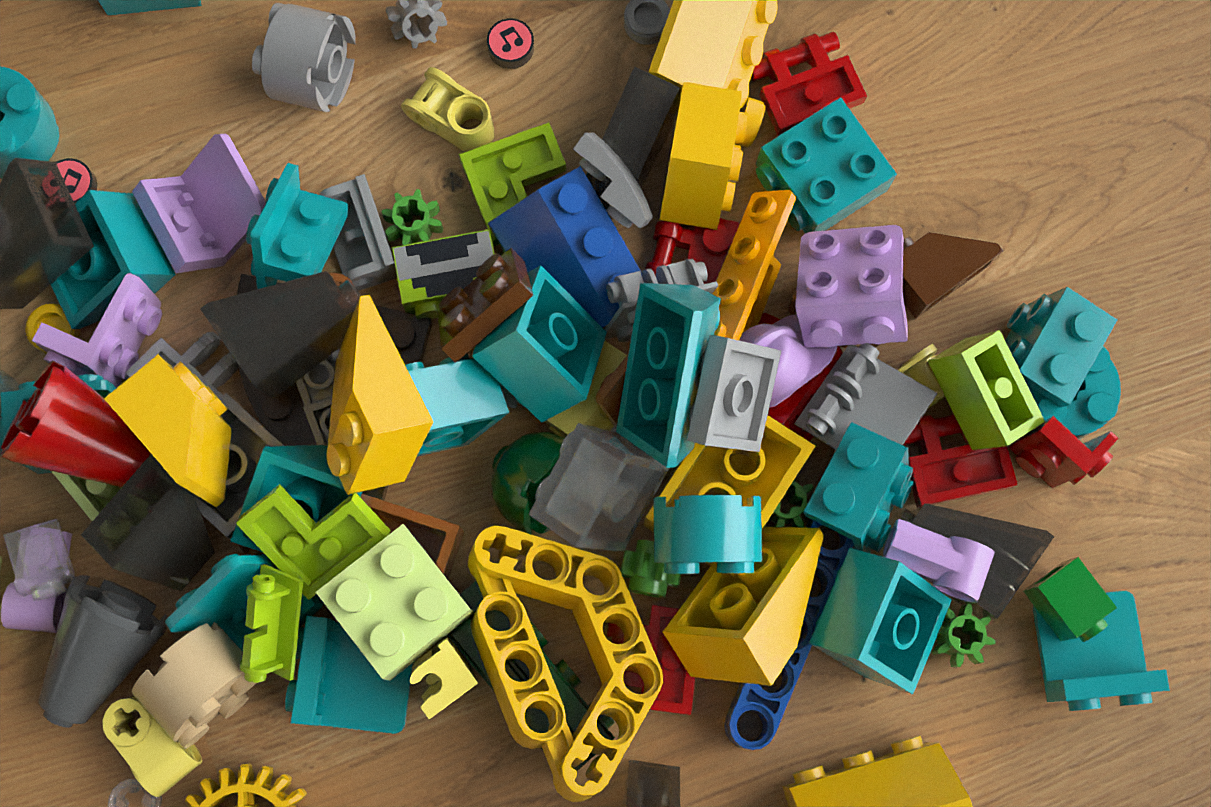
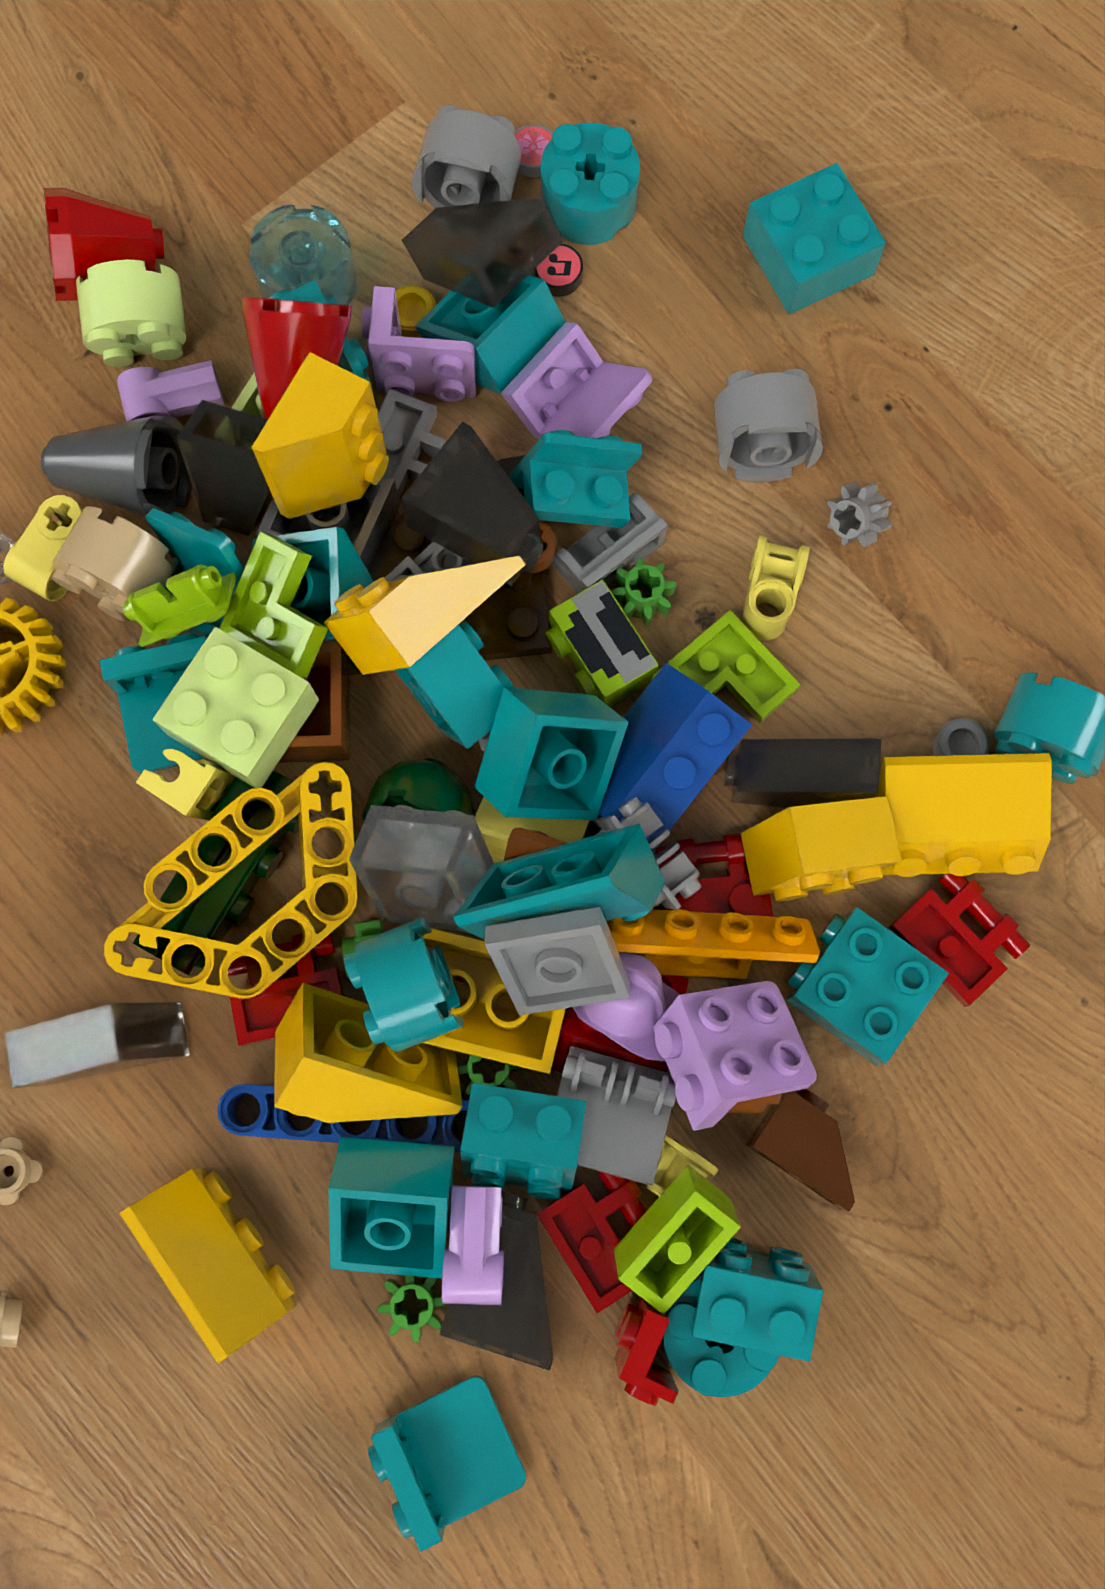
camera: 75 degrees right, 0 degrees up
(40, 560) = (180, 382): clear bracket -> none
(484, 304) = (568, 682): reddish brown plate -> none
(510, 43) = (874, 618): tile -> none
(624, 193) = (744, 782): light grey slope -> none
(755, 115) = (888, 889): yellow tile -> none
(1071, 601) = (486, 1413): green brick -> none

